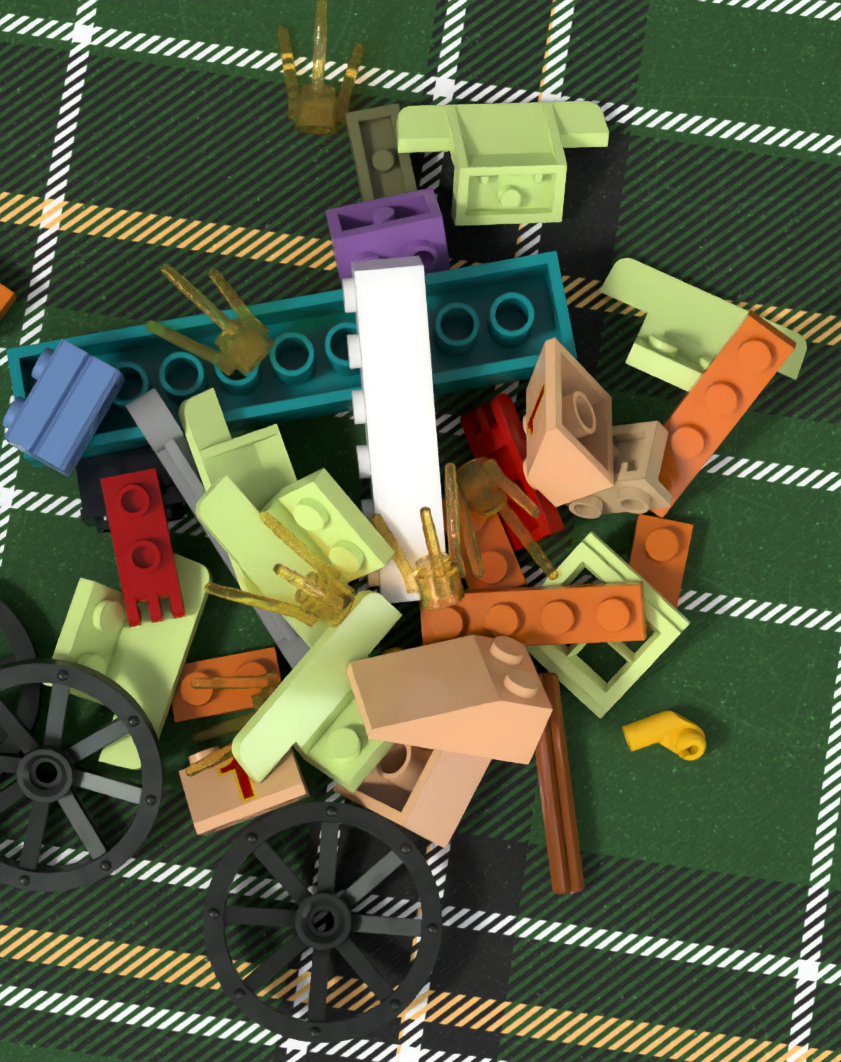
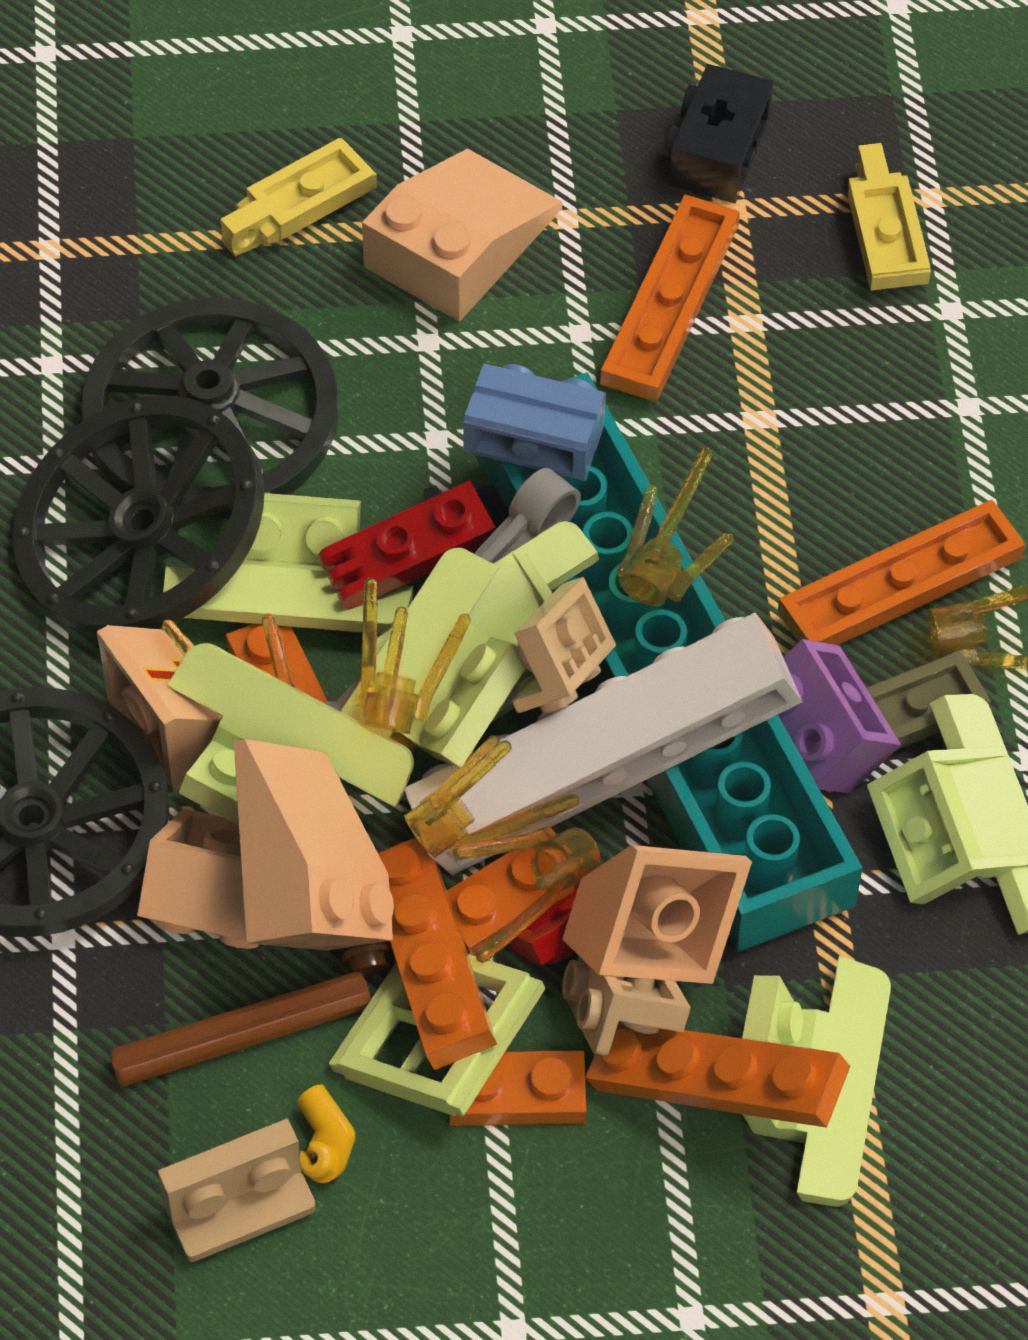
camera: 80 degrees right, 25 degrees down
(255, 140) = (903, 576): none -> orange plate
(316, 441) = (561, 647): none -> tan bracket
(712, 814) = (236, 1191): none -> tan bracket

